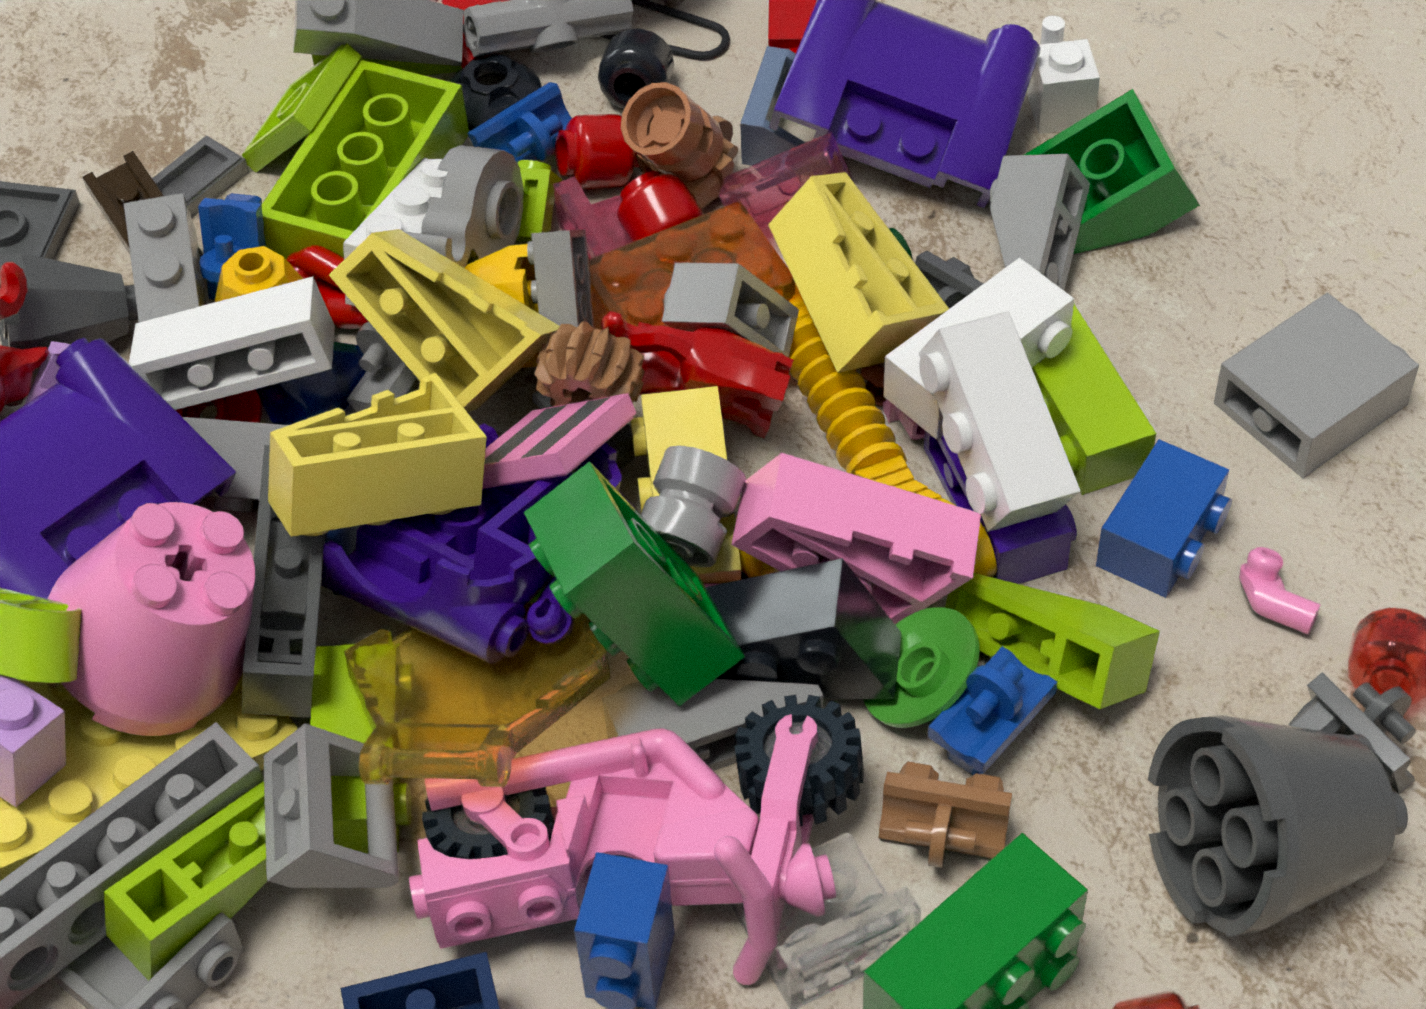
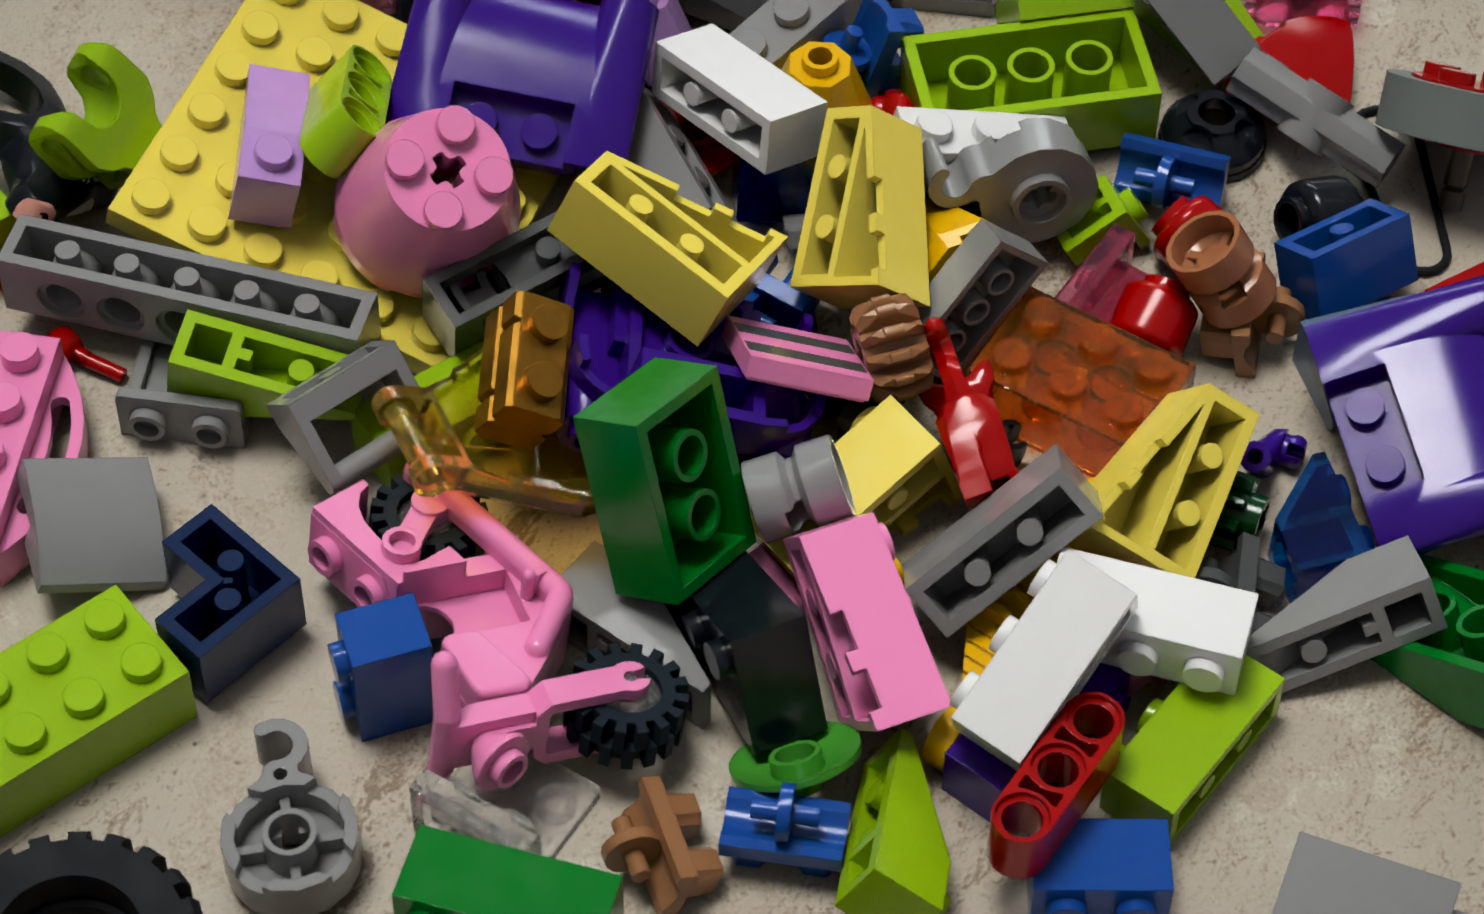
camera: 55 degrees right, 0 degrees up
(417, 638) = (524, 370): none -> pearl gold brick
(702, 61) = (1348, 259): none -> blue brick
(730, 300) = (1040, 408): light grey slope -> none
(774, 181) = (1279, 396): clear pink panel -> none
(840, 384) = (1001, 540): none -> light grey brick
(933, 216) = (1316, 528): none -> clear blue slope
(1116, 501) = (1051, 811): none -> red beam

